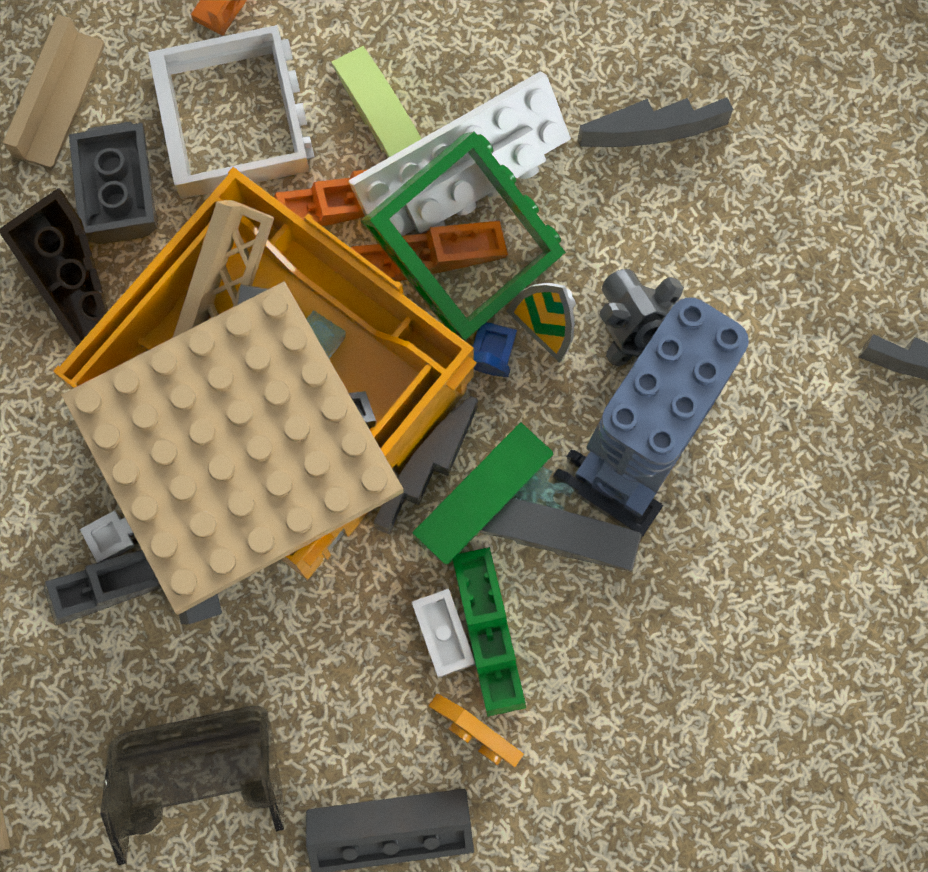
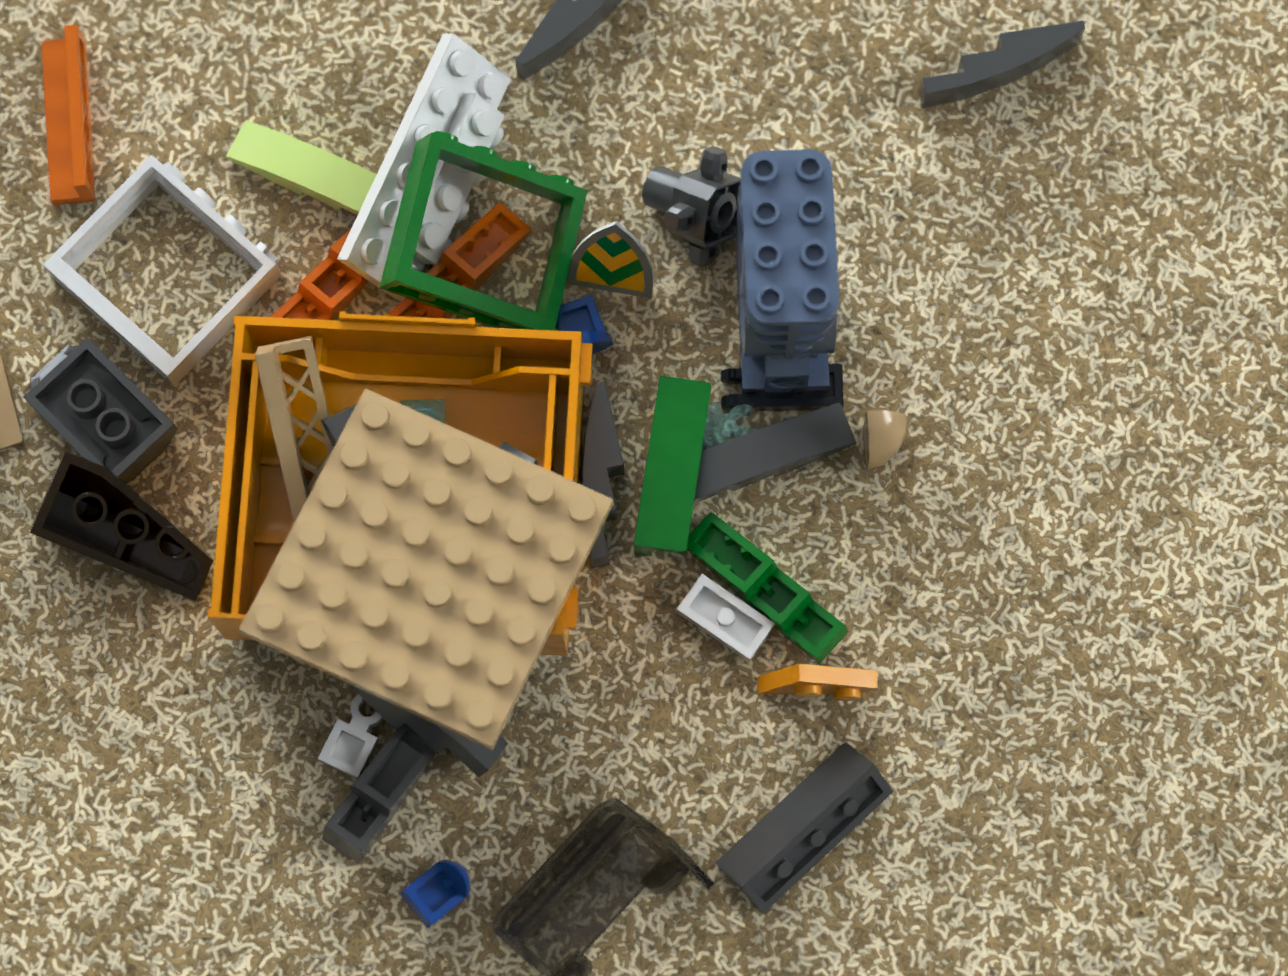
camera: 35 degrees left, 0 degrees up
(92, 686) = (437, 891): none -> blue plate
(655, 580) = (883, 436): none -> tan brick

